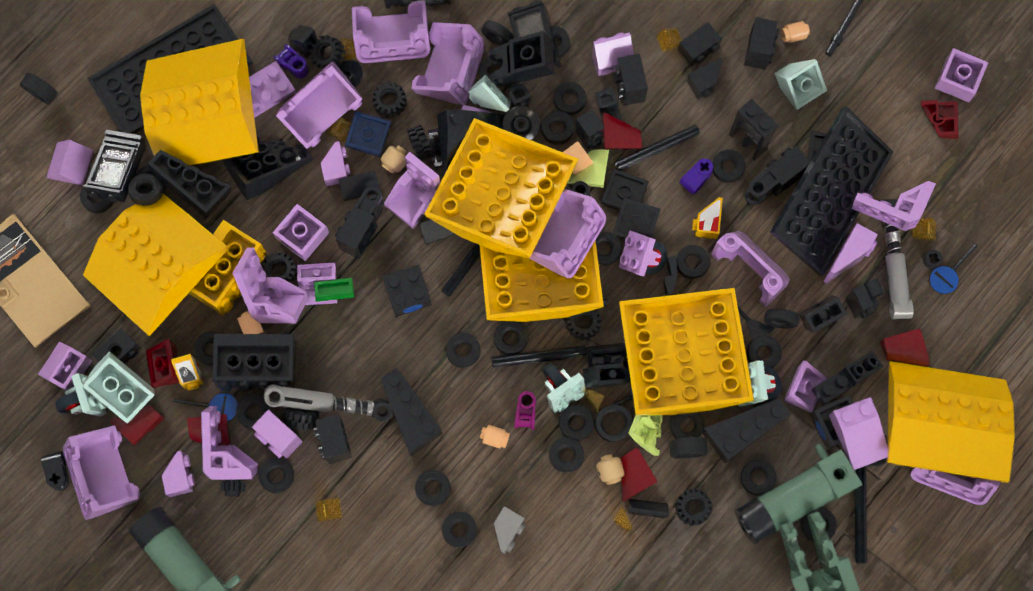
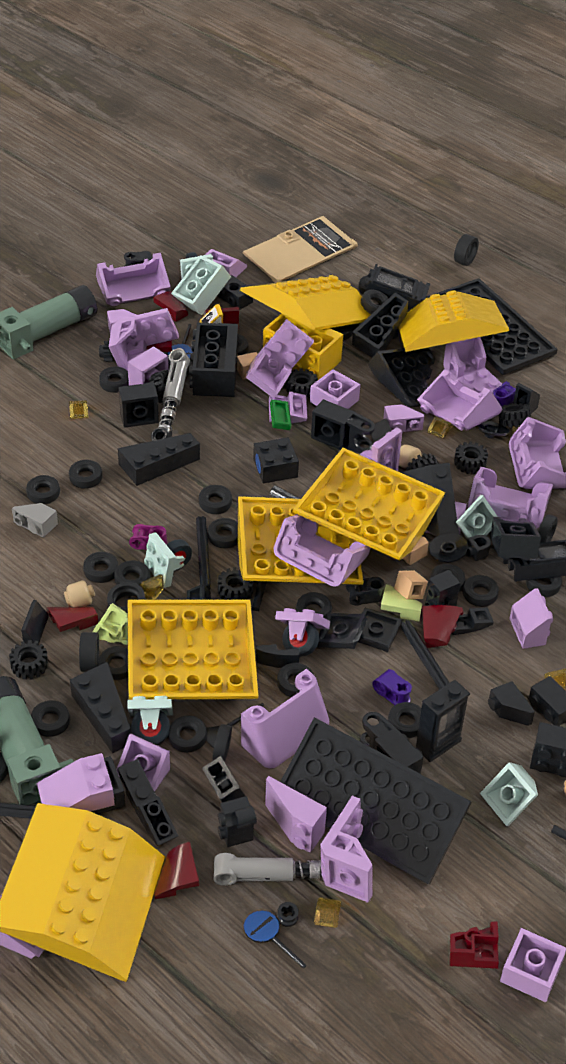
camera: 90 degrees right, 30 degrees down
(70, 162) = (405, 267): lavender slope -> none
(367, 134) = (435, 441): dark blue plate -> none
(494, 436) = (126, 514): light nougat brick -> none
(607, 375) = (173, 584): black hinge -> none
(622, 520) = (24, 601): clear yellow slope -> none
(630, 79) = (501, 631): black brick -> none
(708, 221) = (343, 695): slope -> none

